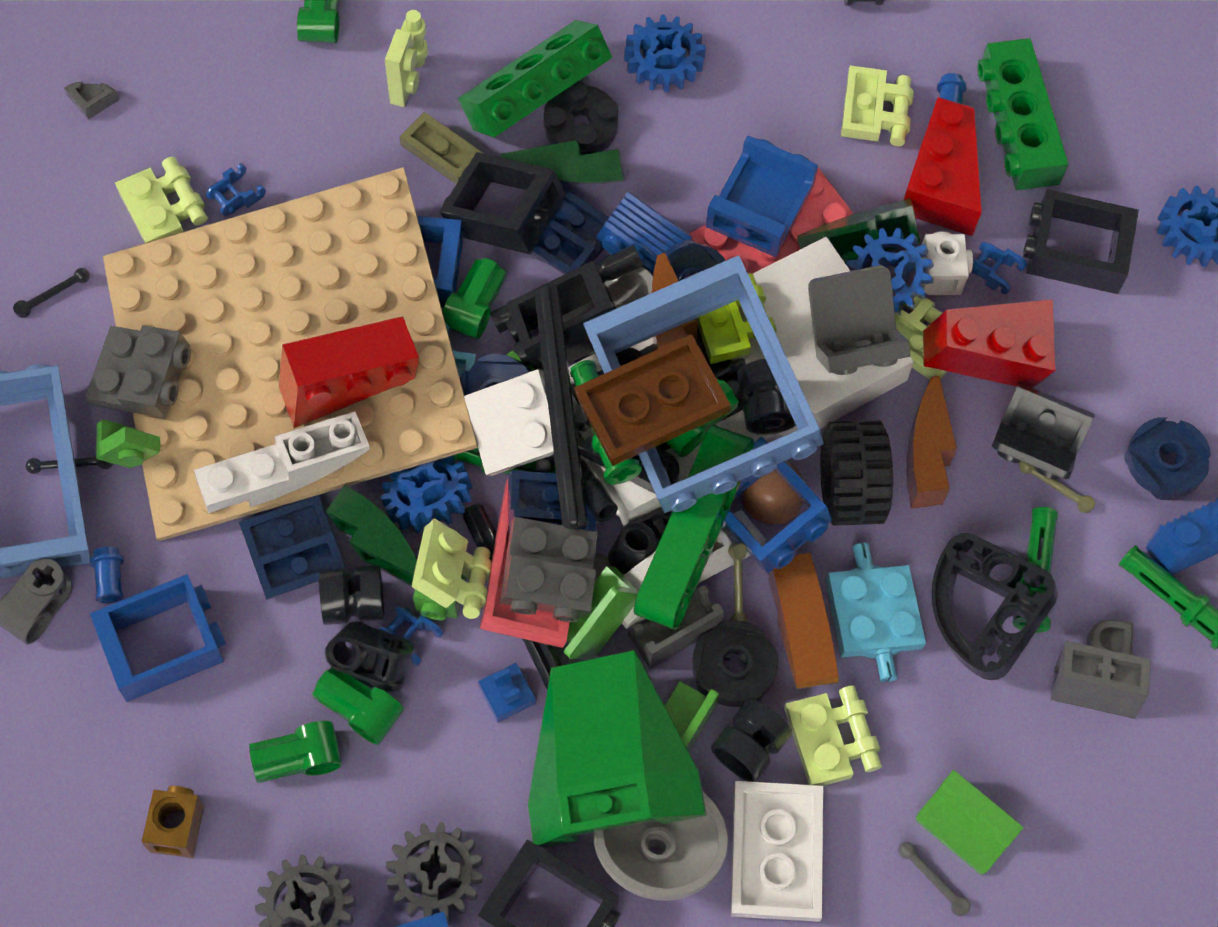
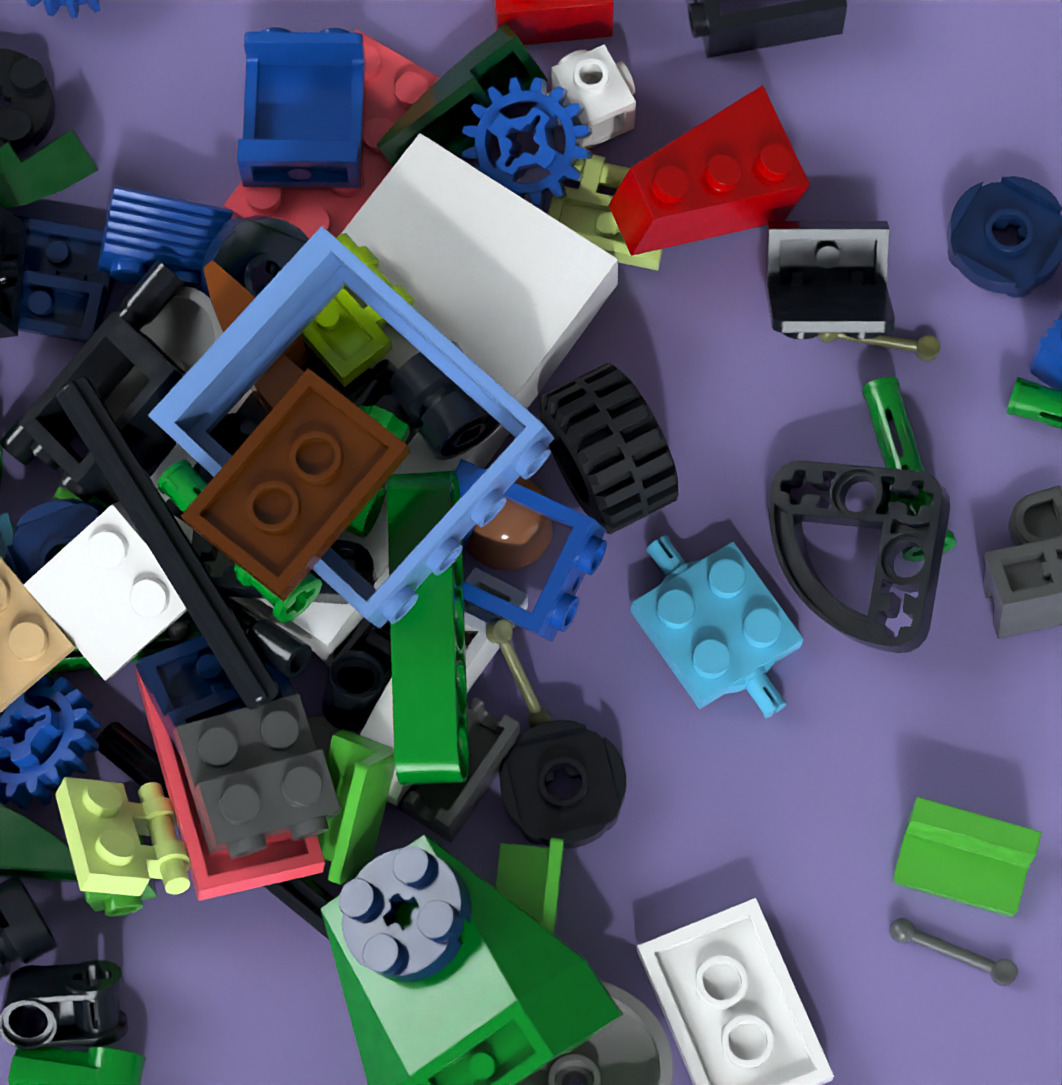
camera: 20 degrees left, 5 degrees up
(421, 623) = (112, 924): blue piece -> none
(506, 692) = (273, 967): blue tile -> none
(590, 671) = (376, 894): none -> plate
(754, 737) = (634, 879): black wheel -> none
(804, 623) = (631, 687): dark orange slope -> none
(820, 741) = (723, 836): yellowish green plate -> none
(855, 320) = (517, 241): dark grey bracket -> none
(930, 449) = (689, 366): dark orange slope -> none
(1000, 257) = (664, 51): blue piece -> none

